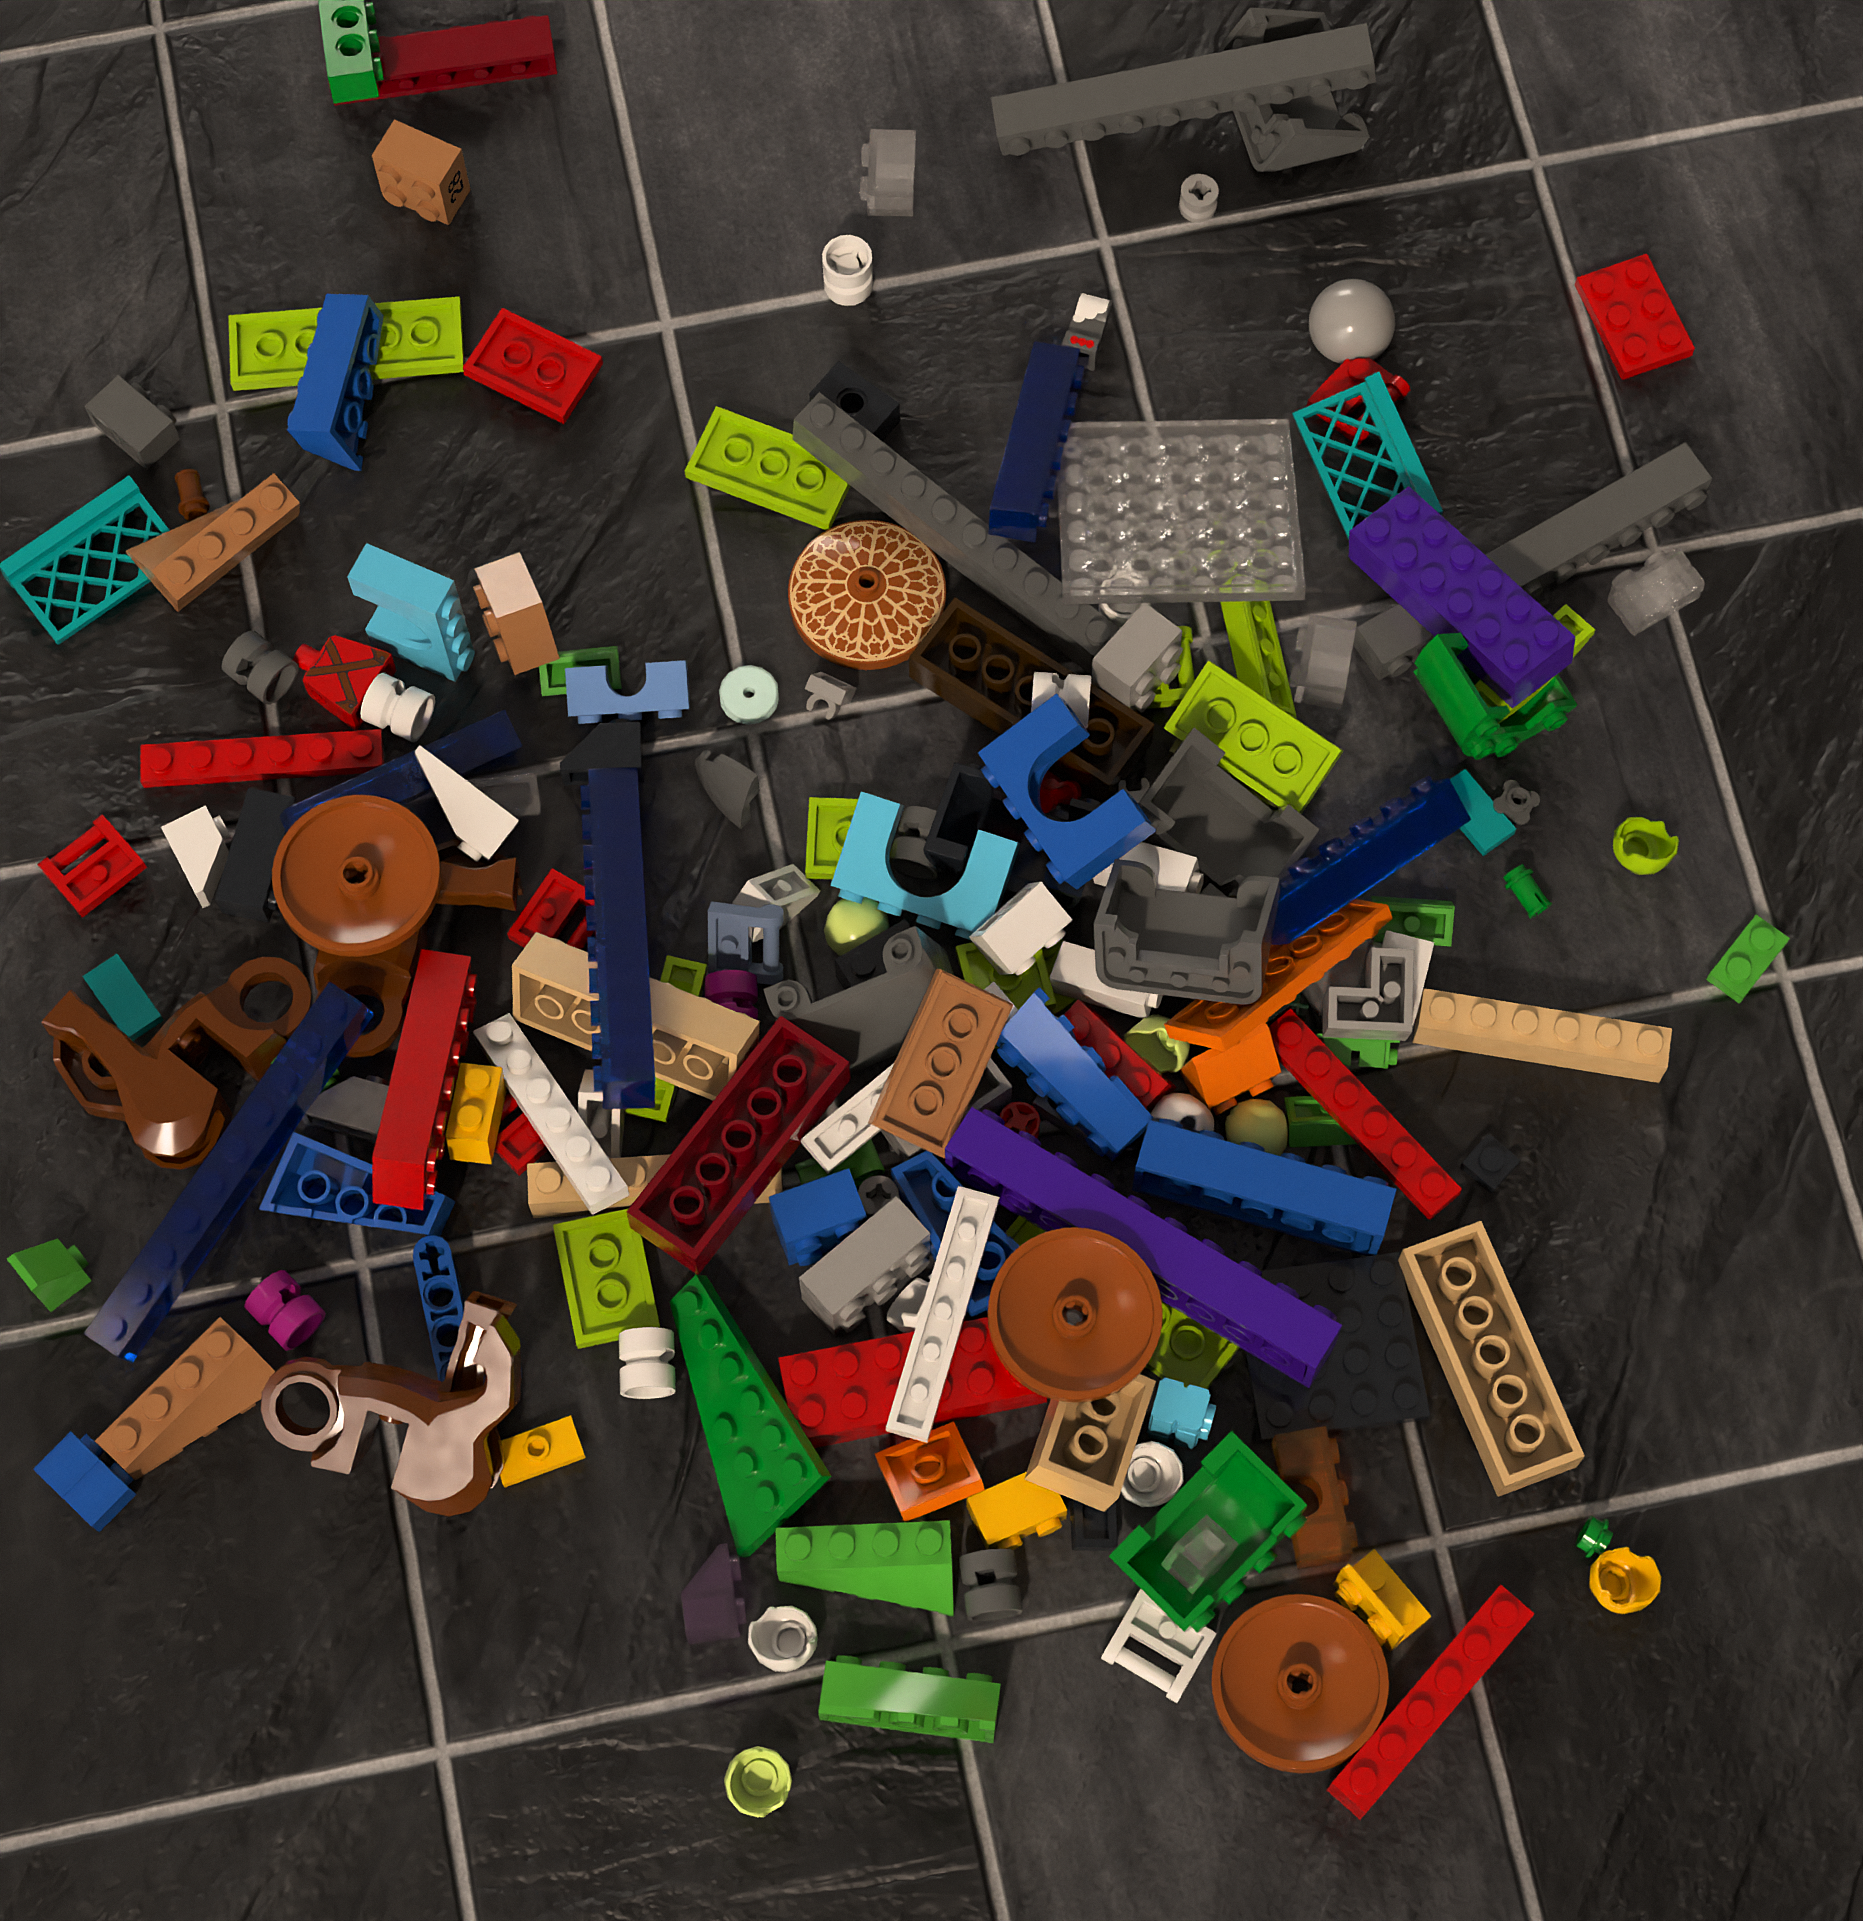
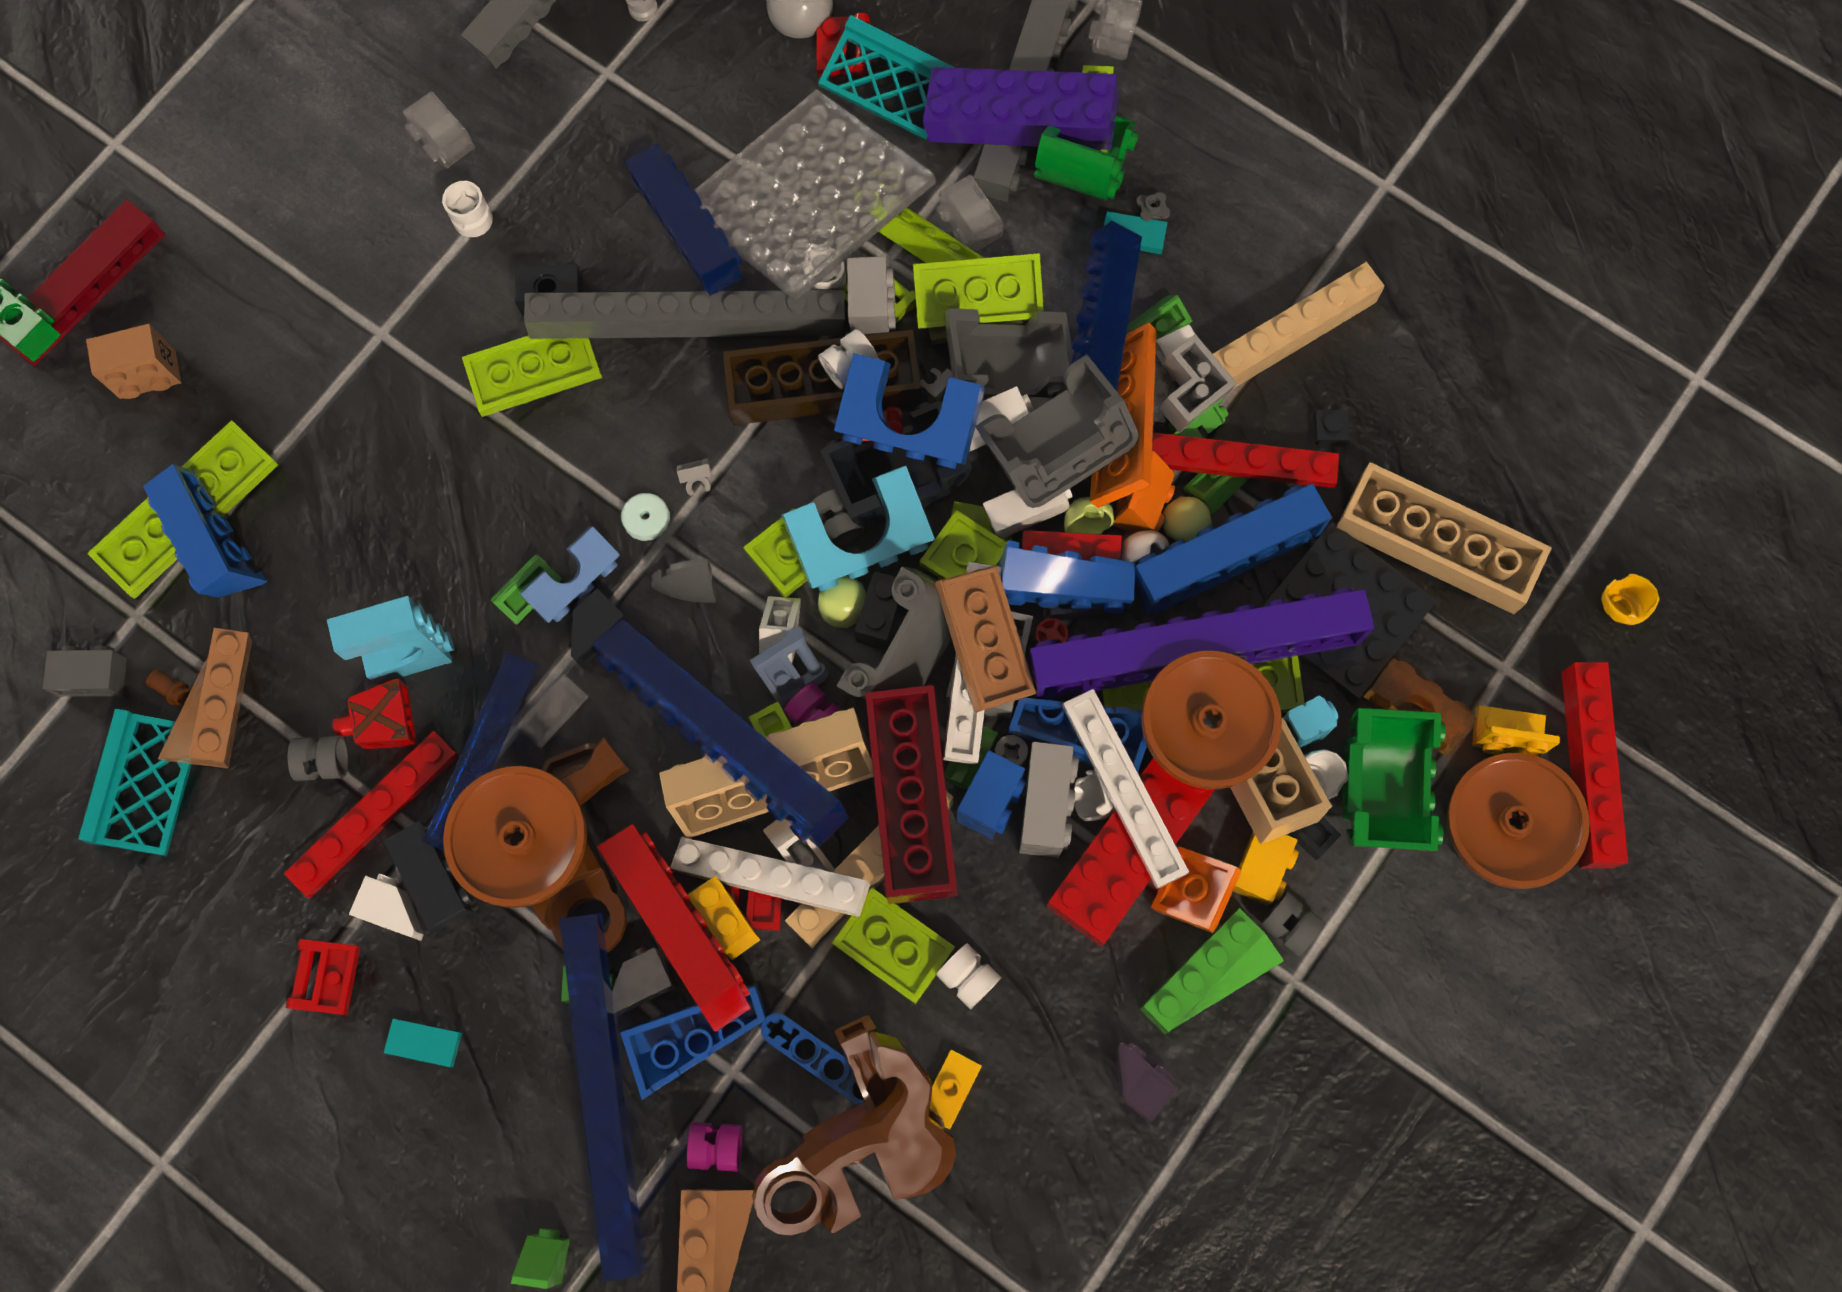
camera: 40 degrees left, 5 degrees up
(153, 1088) = (517, 1087): reddish brown animal -> none
(403, 709) = (436, 707): white wheel -> none
(470, 813) = (548, 735): white slope -> none
(514, 614) = (456, 586): medium nougat brick -> none
(533, 365) = (319, 425): red plate -> none
(551, 911) = (648, 753): red plate -> none
(752, 1436) = (1075, 963): green wing -> none
(758, 1781) = (1271, 1168): yellowish green hair -> none
(783, 1638) = (1205, 1067): white hair -> none
(862, 624) = (664, 421): dark orange dish -> none
(909, 1700) = (1312, 1034): bright green wedge -> none
(1021, 929) = (953, 516): white brick -> none
(1088, 328) = (647, 128): dark grey leg -> none
(1155, 1629) = (1406, 863): white plate -> none
(1199, 1554) = (1396, 797): clear brick -> none
(1526, 890) = (1206, 253): green pin -> none
(1594, 1536) = (1587, 590): green plate -> none
(1644, 845) = (1248, 172): lime hair -> none
(1747, 959) = (1359, 191): bright green plate -> none

